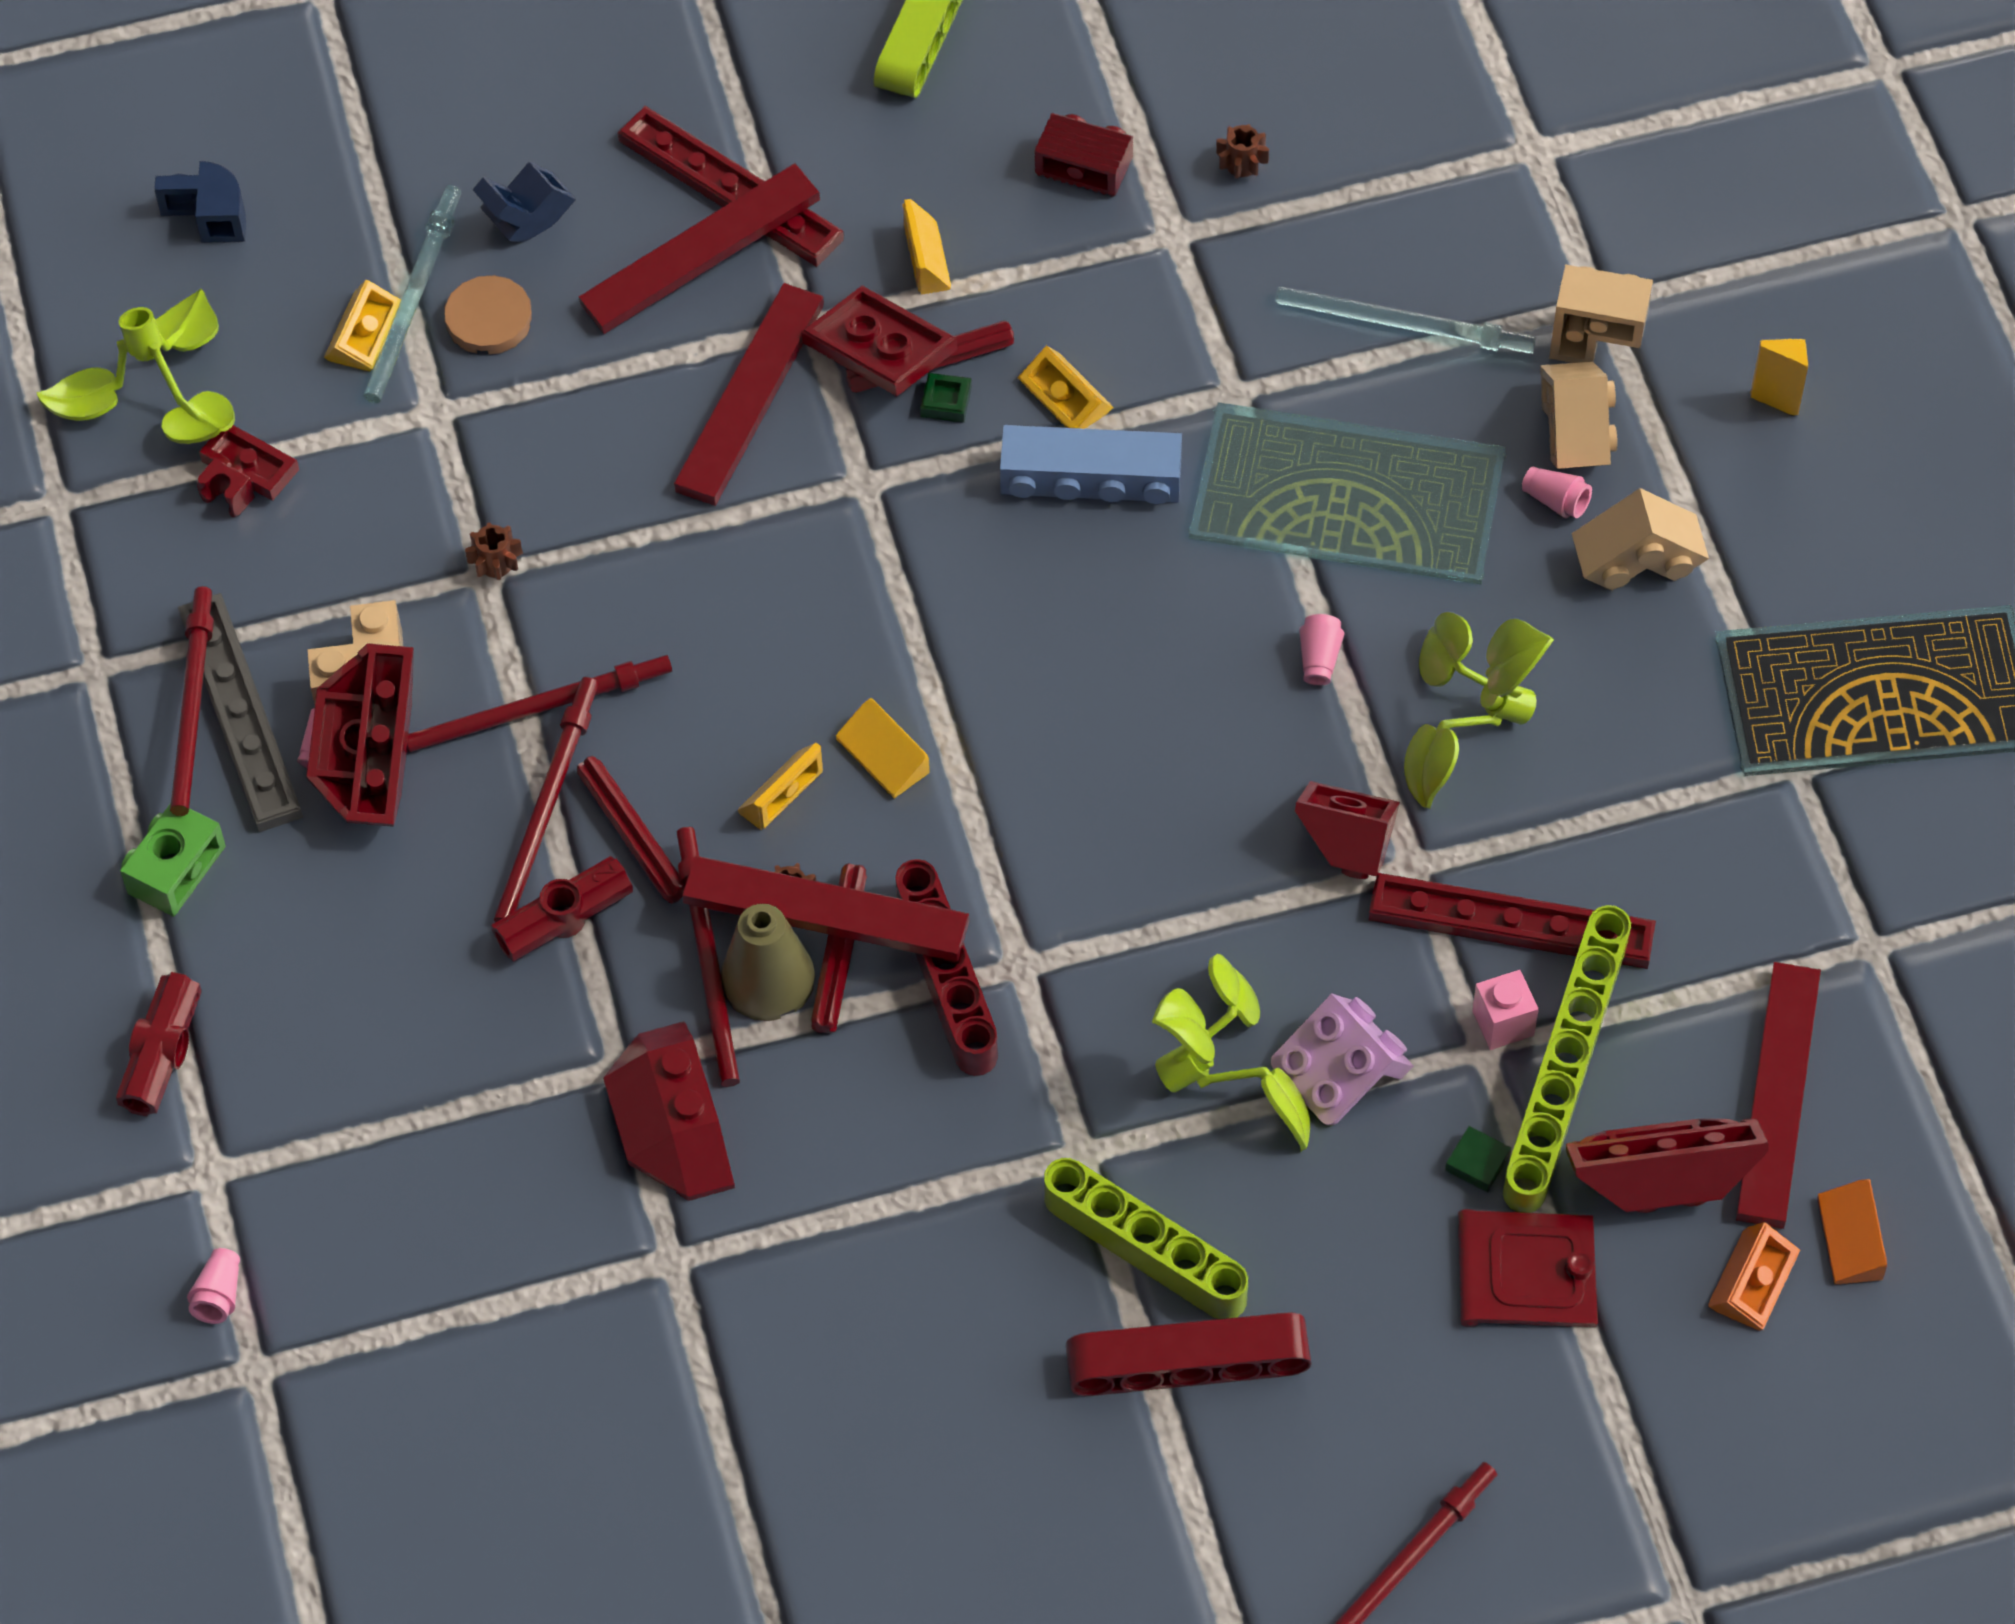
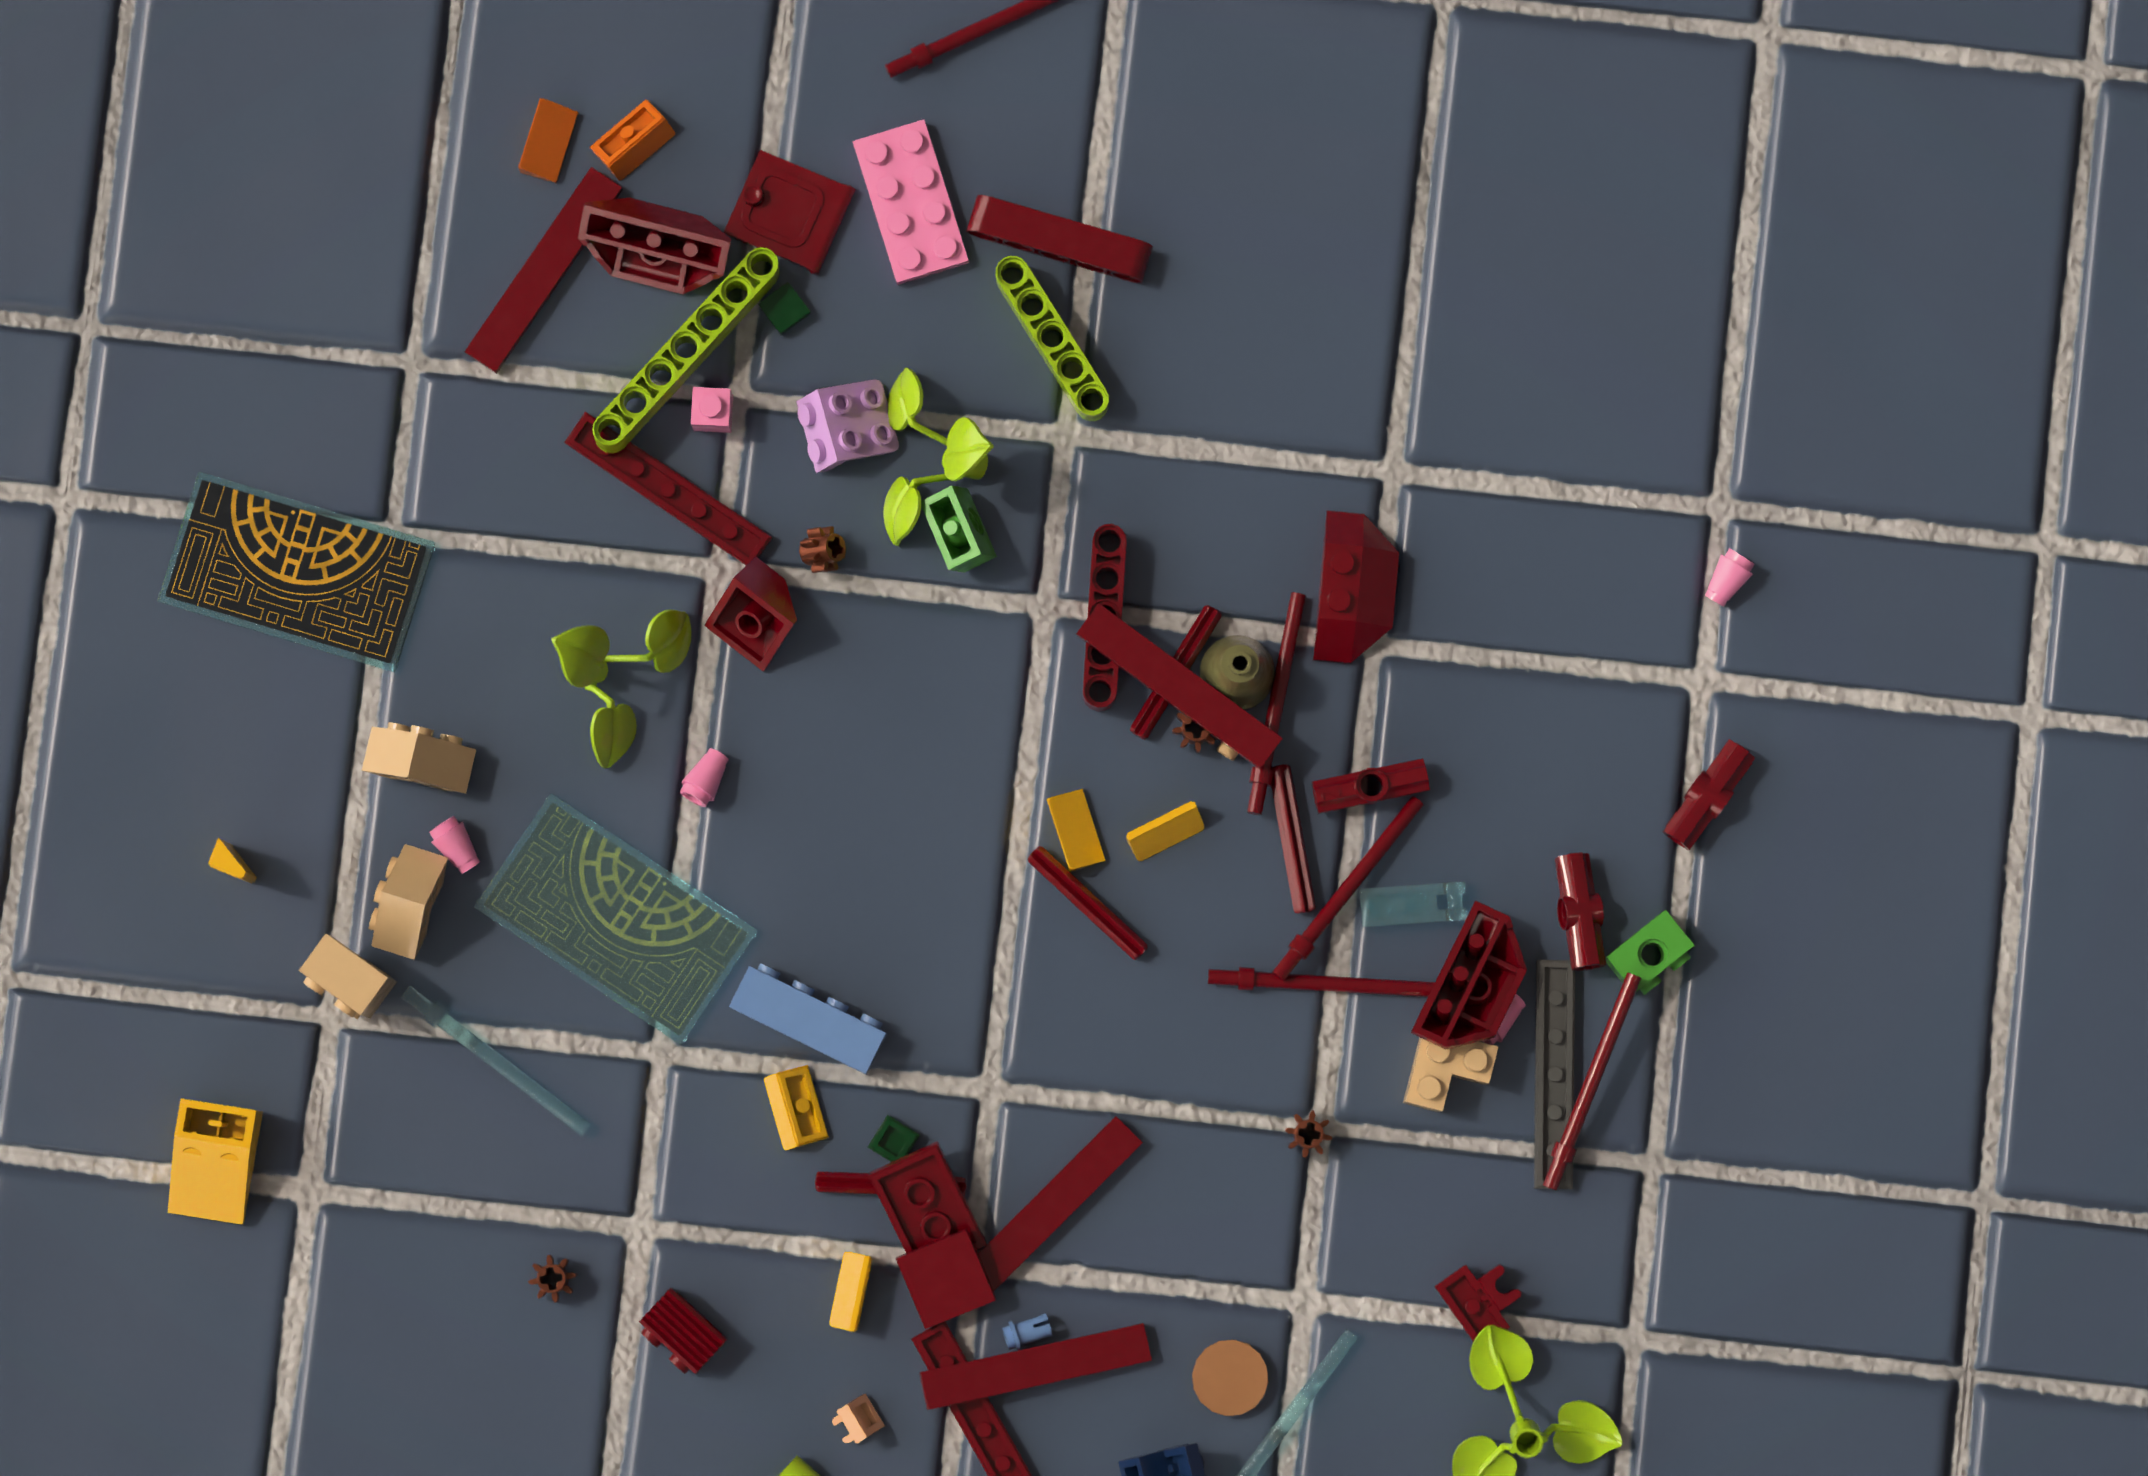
camera: 160 degrees left, 25 degrees up
(267, 867) = (1580, 911): none -> dark red piece
(363, 327) = (1335, 1409): yellow slope -> none
(465, 812) = (1411, 904): none -> clear light blue plate
(723, 277) = (1026, 1331): none -> medium blue pin
(830, 284) = (946, 1278): none -> dark red tile
(835, 685) = (1087, 902): none -> dark red axle
(863, 143) = (859, 1419): none -> light nougat tile
(1148, 970) = (958, 529): none -> bright green brick
(1304, 914) = (822, 549): none -> copper gear
(1388, 1334) = (910, 202): none -> bright pink plate
(1649, 134) = (213, 1160): none -> yellow slope

